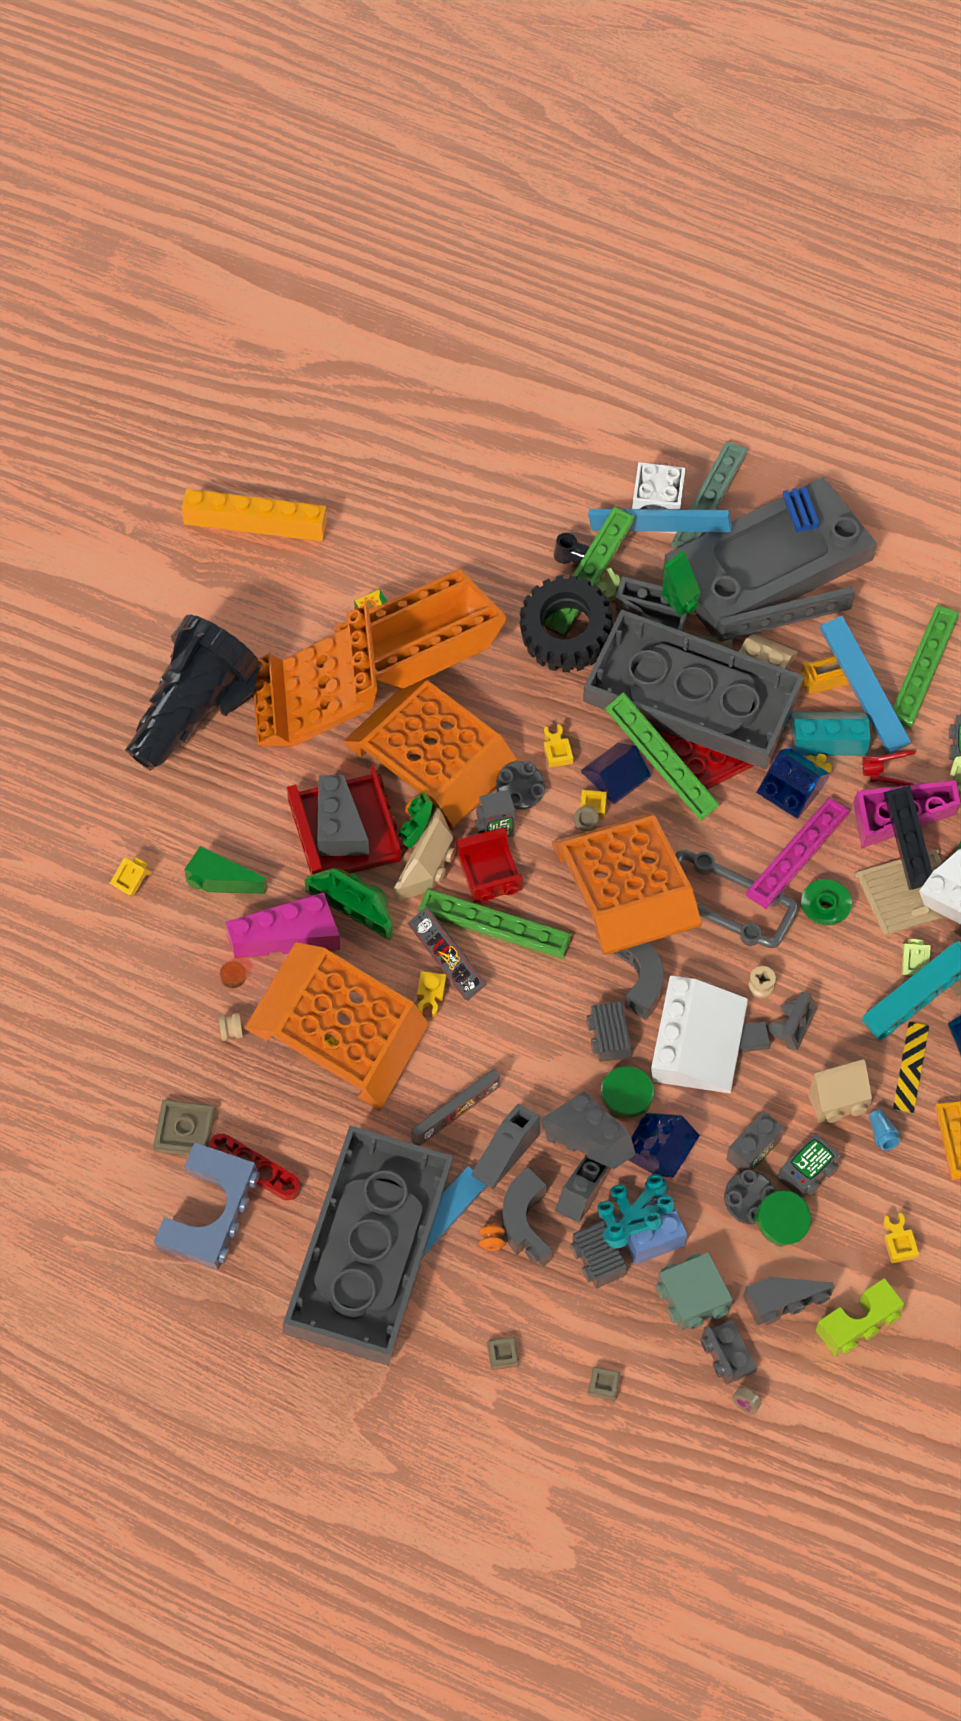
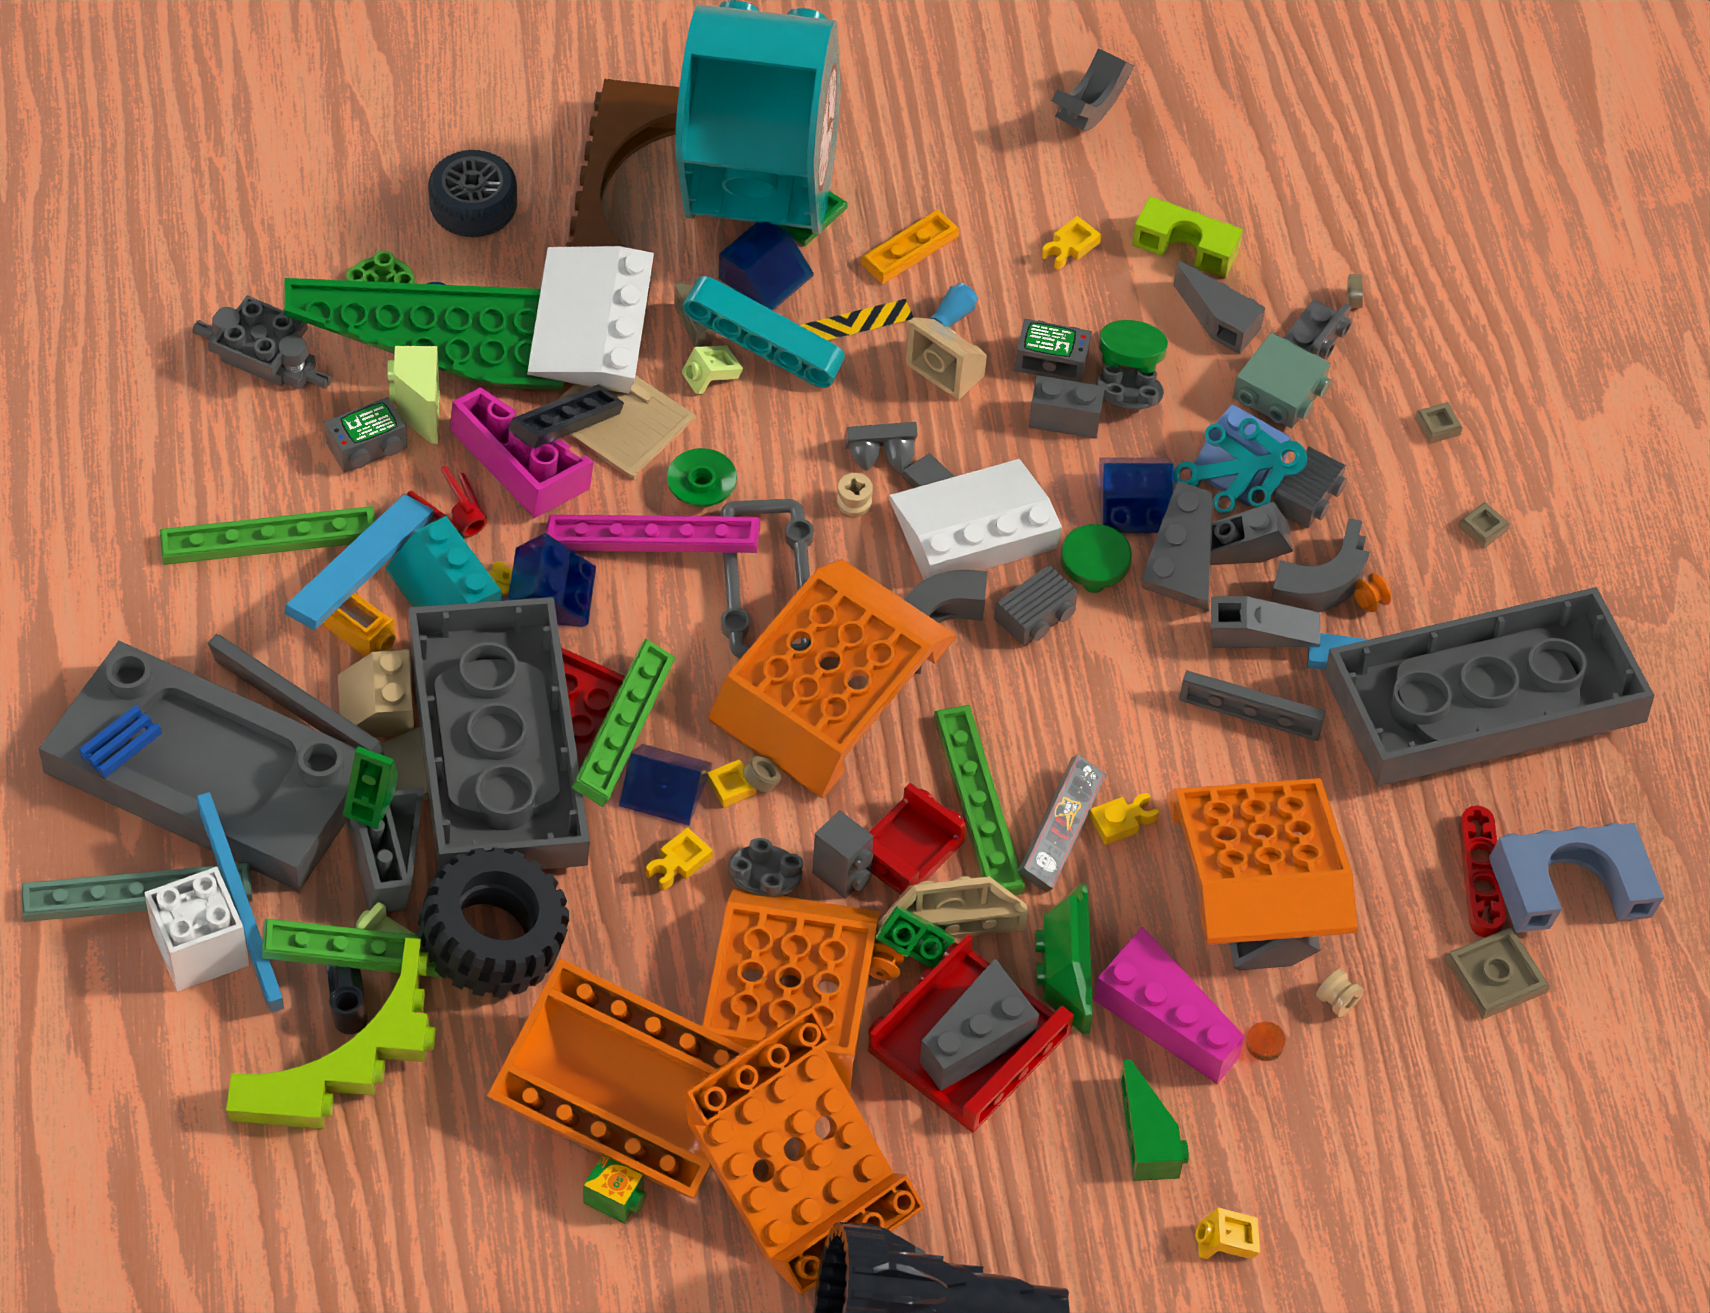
camera: 125 degrees left, 5 degrees down
(525, 506) = (301, 1094): none -> lime arch

